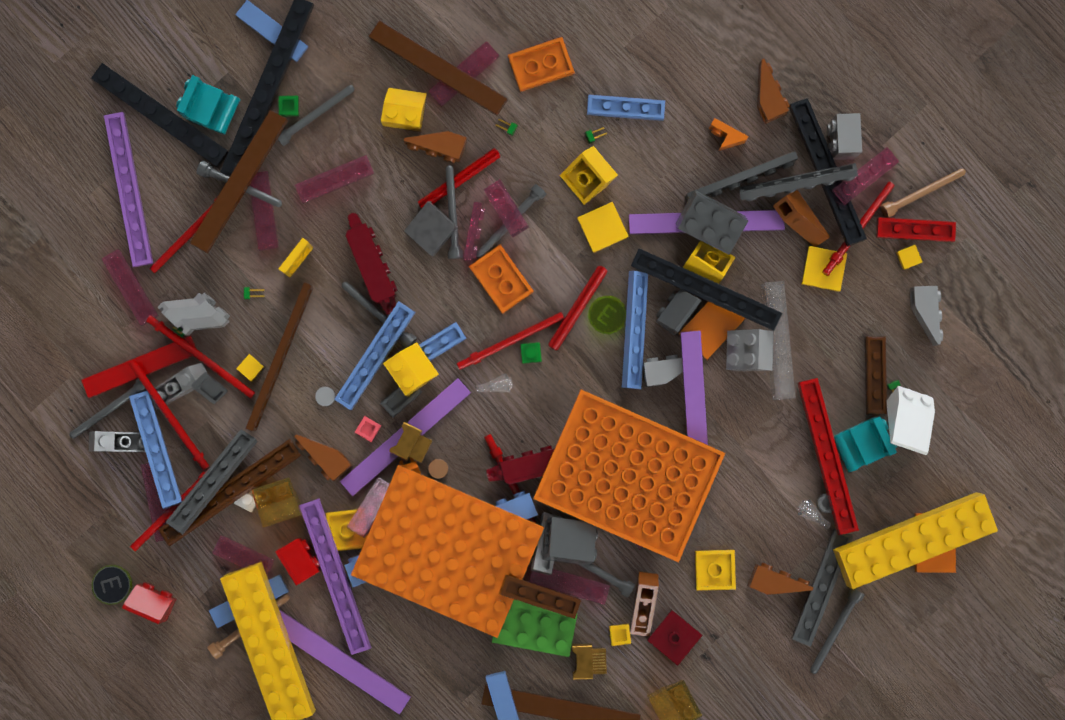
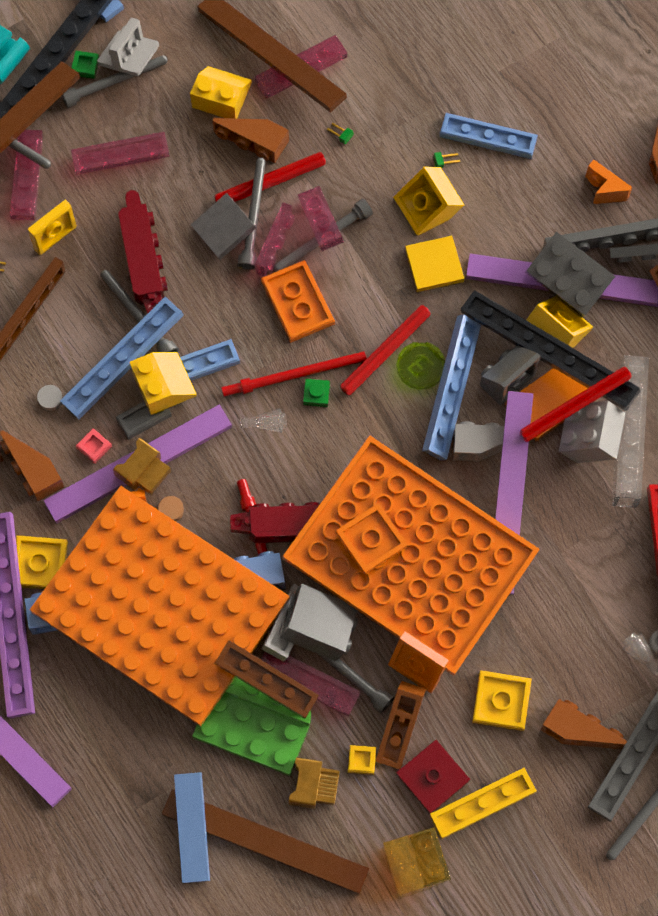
camera: 15 degrees right, 15 degrees down
(322, 88) = (128, 50): none -> light grey bracket
(366, 513) = (62, 545): clear pink plate -> none
(541, 64) = (395, 72): orange tile -> none
(598, 473) = (371, 538): none -> orange plate
(649, 557) = (418, 662): none -> orange tile
(715, 651) = (482, 803): none -> yellow plate
(735, 335) = (575, 404): none -> red axle

